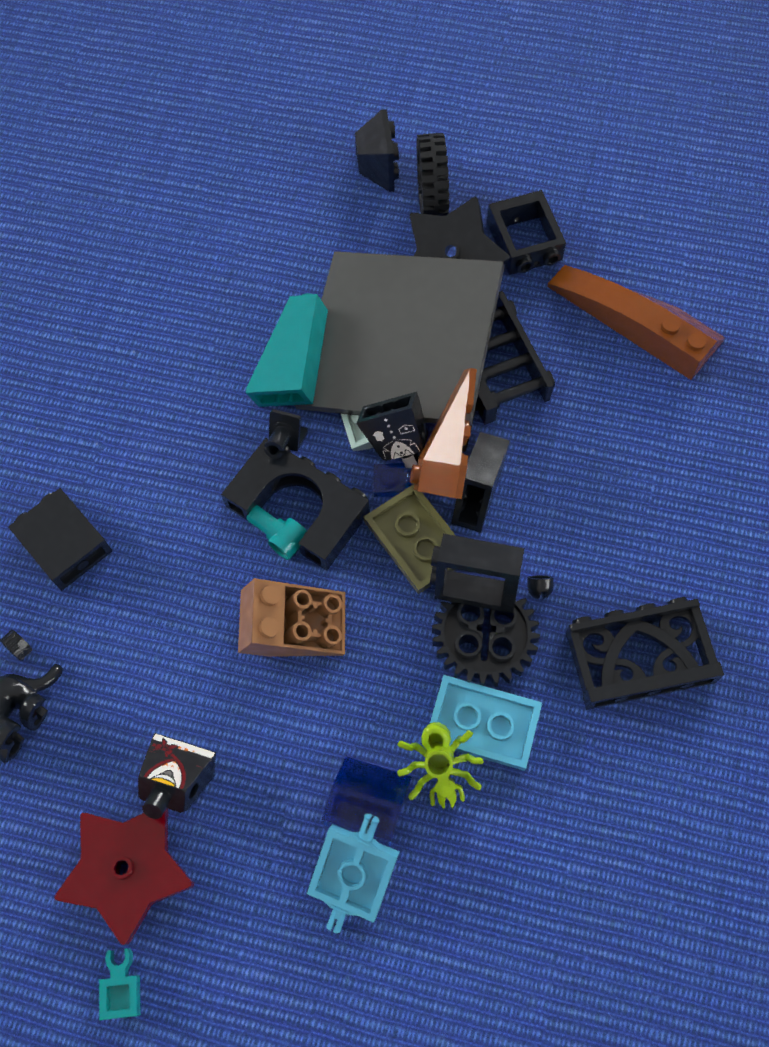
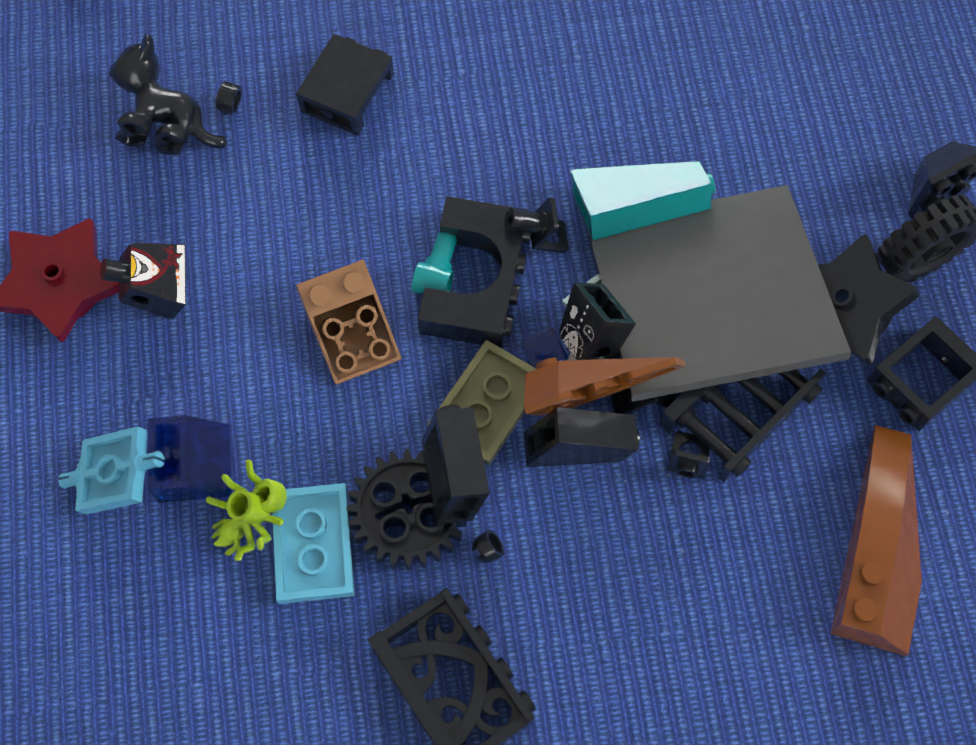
camera: 65 degrees right, 0 degrees up
(533, 413) = (686, 463): none -> black bracket

